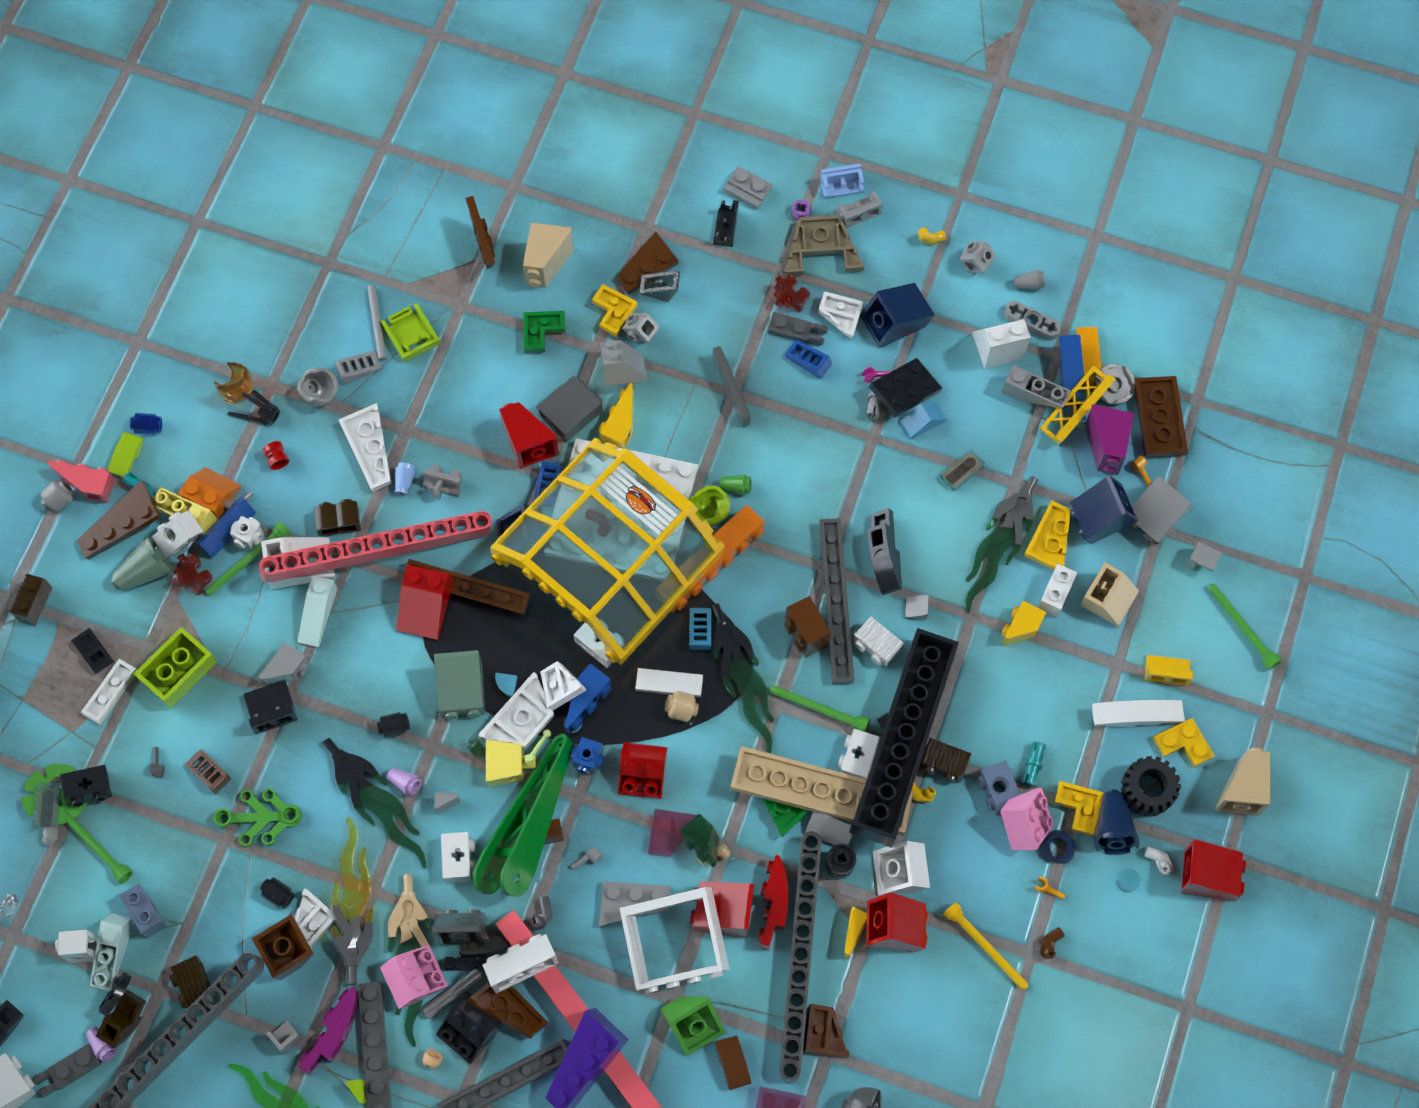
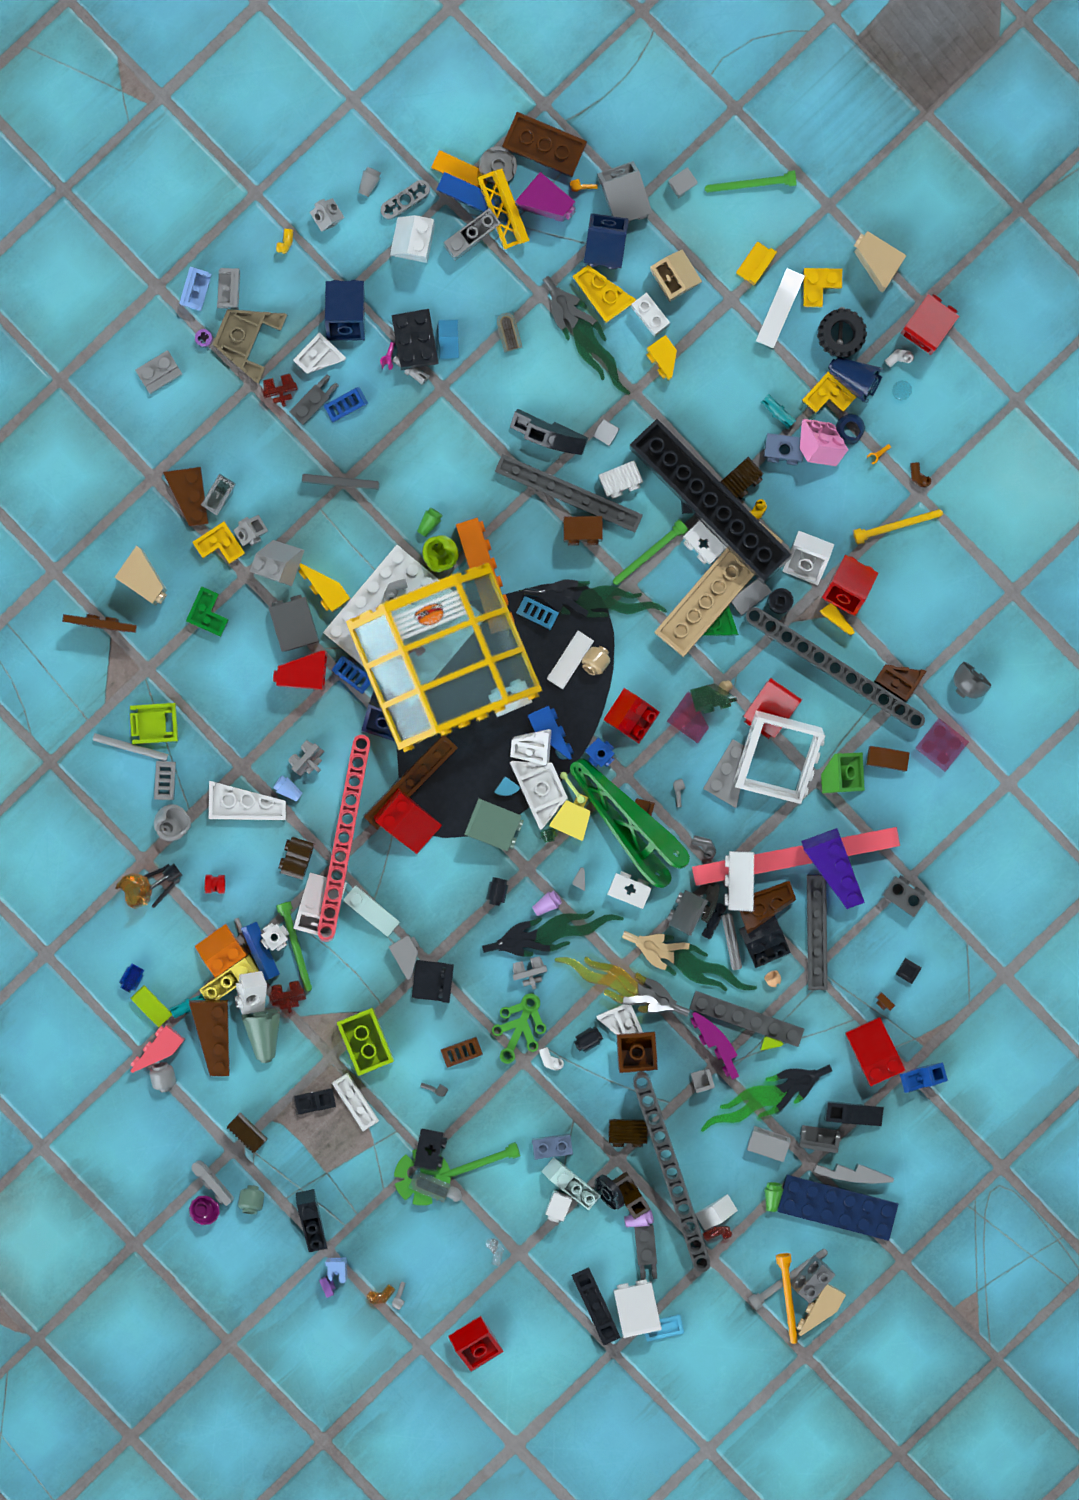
camera: 60 degrees left, 20 degrees up
(235, 865) = (549, 1061): none -> white arm
(331, 803) = (538, 967): none -> light grey hips
(413, 976) = (707, 964): bright pink slope -> none
(726, 224) = (186, 409): black hinge -> none
(775, 894) = (778, 661): red slope -> none

